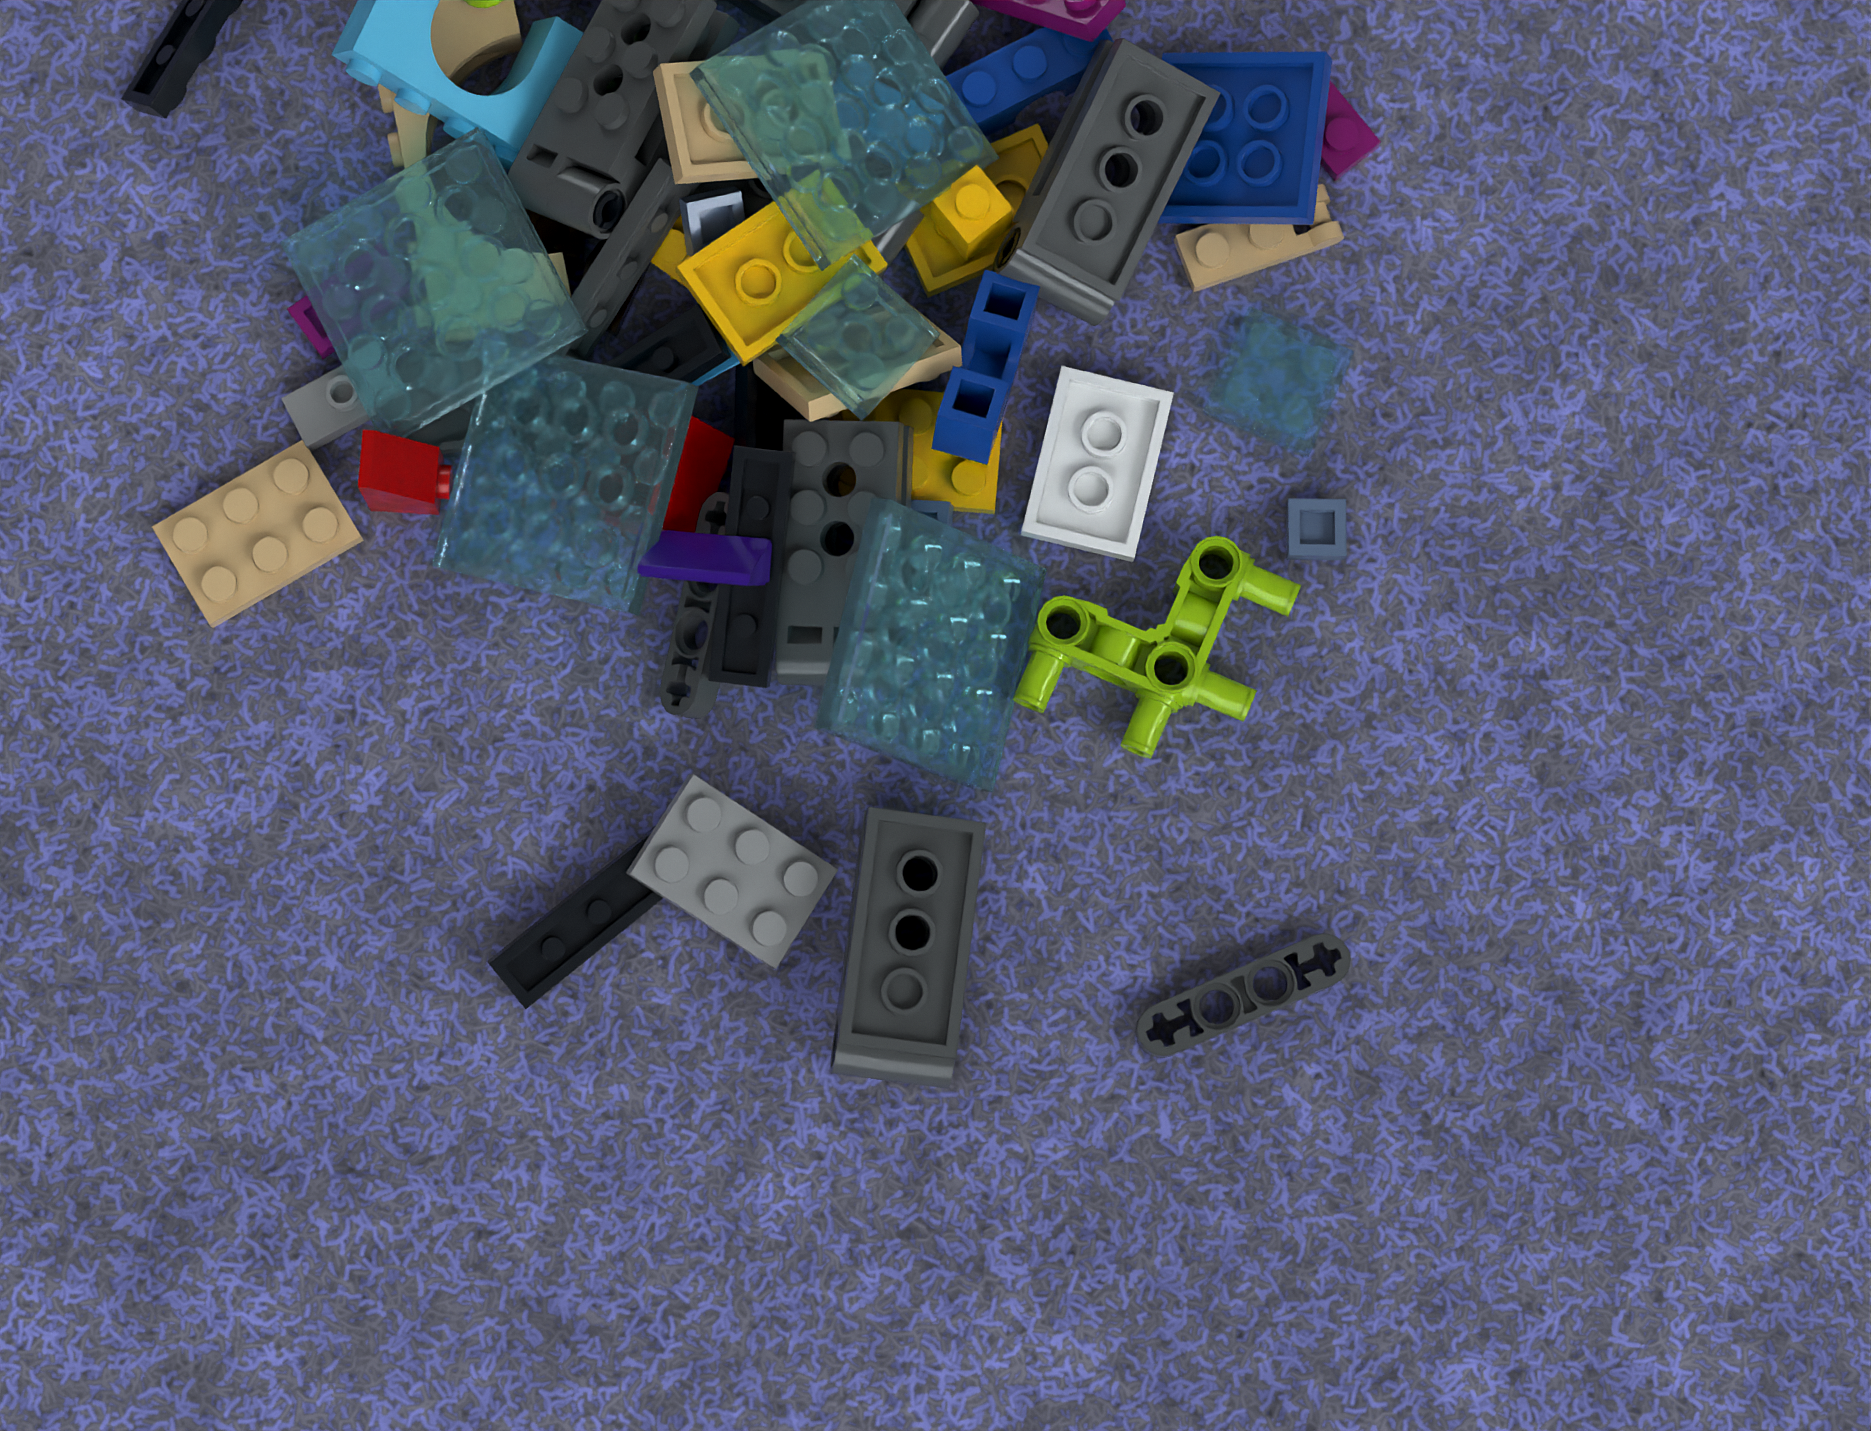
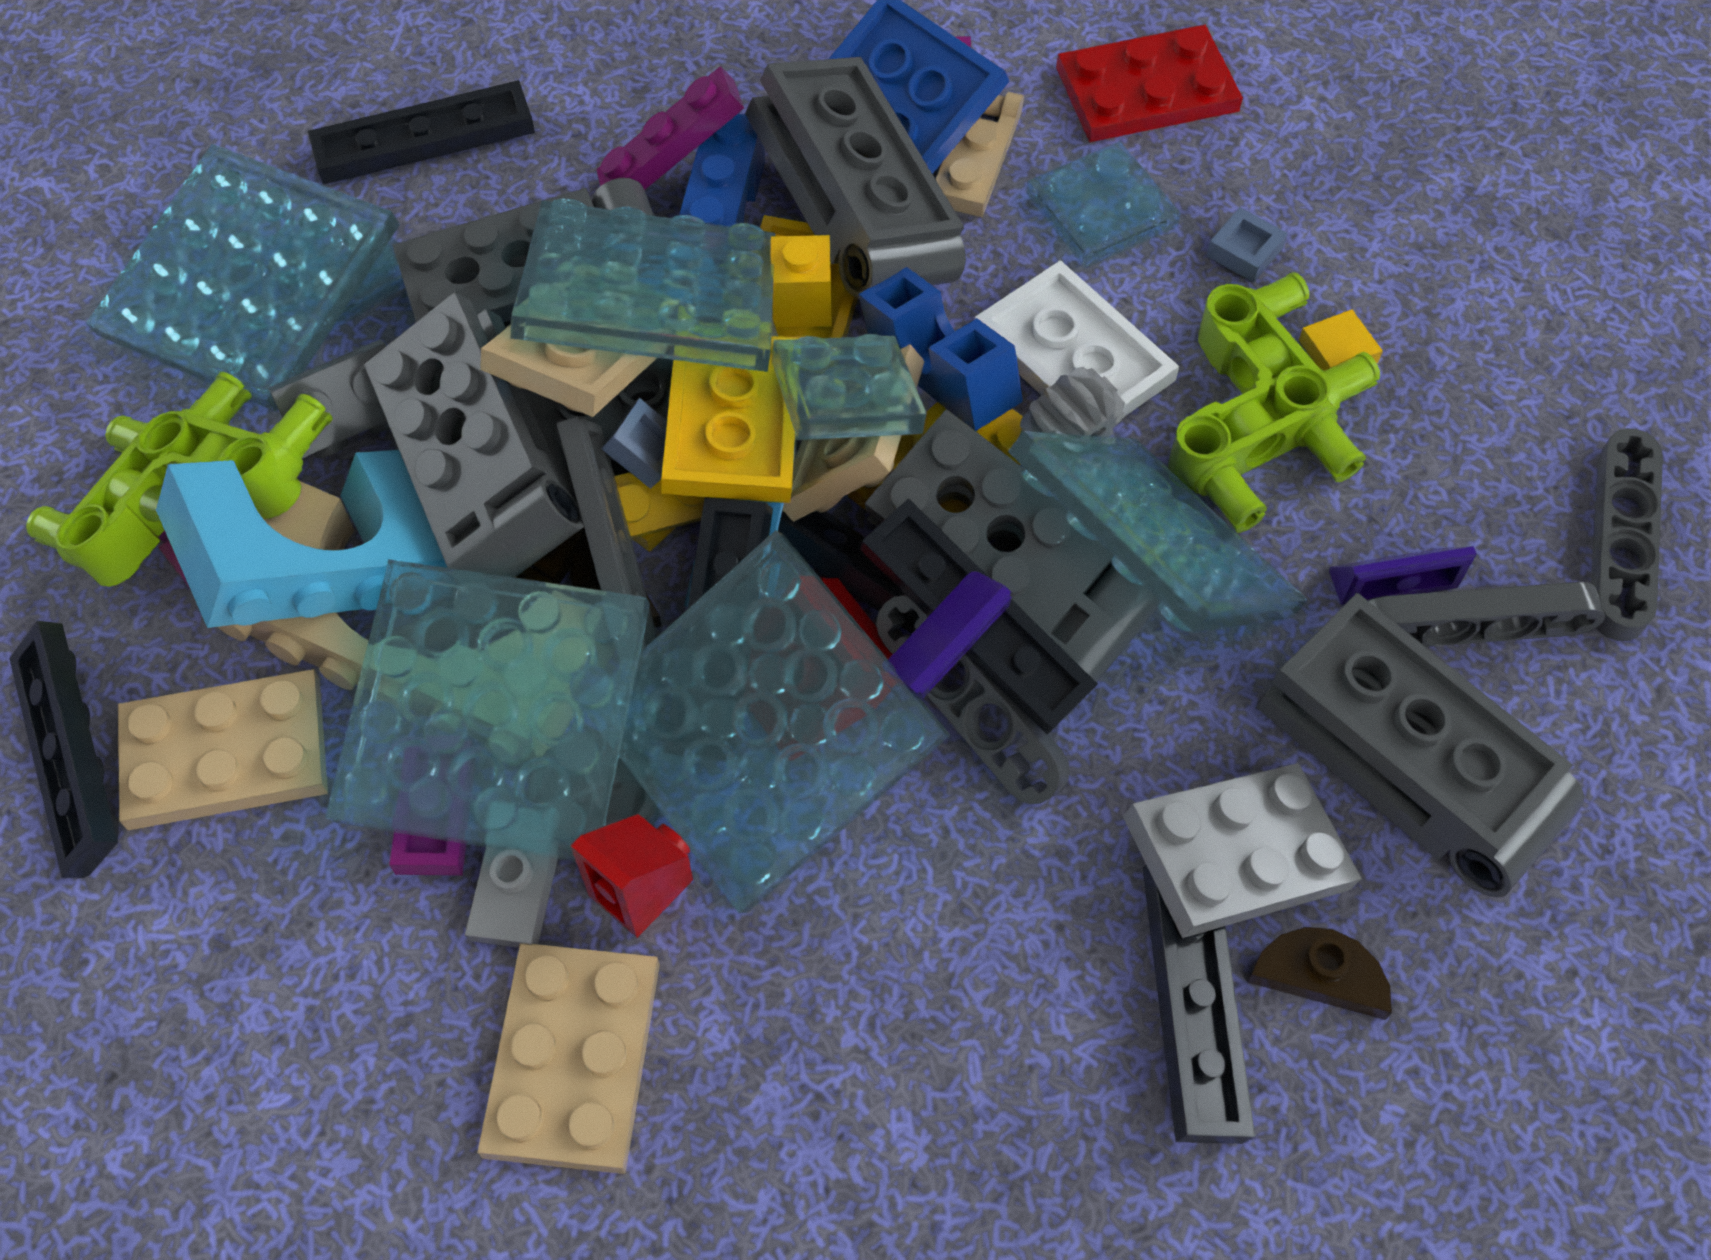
camera: 45 degrees left, 20 degrees down
(287, 117) = (220, 749): none -> tan plate
(690, 983) = (1325, 969): none -> dark brown plate
(995, 512) = (1076, 405): none -> light grey gear
(1066, 926) = (1495, 613): none -> dark grey beam
(1070, 843) = (1403, 573): none -> dark purple slope
(1271, 668) = (1338, 340): none -> yellow tile
(1451, 327) = (1148, 83): none -> red plate

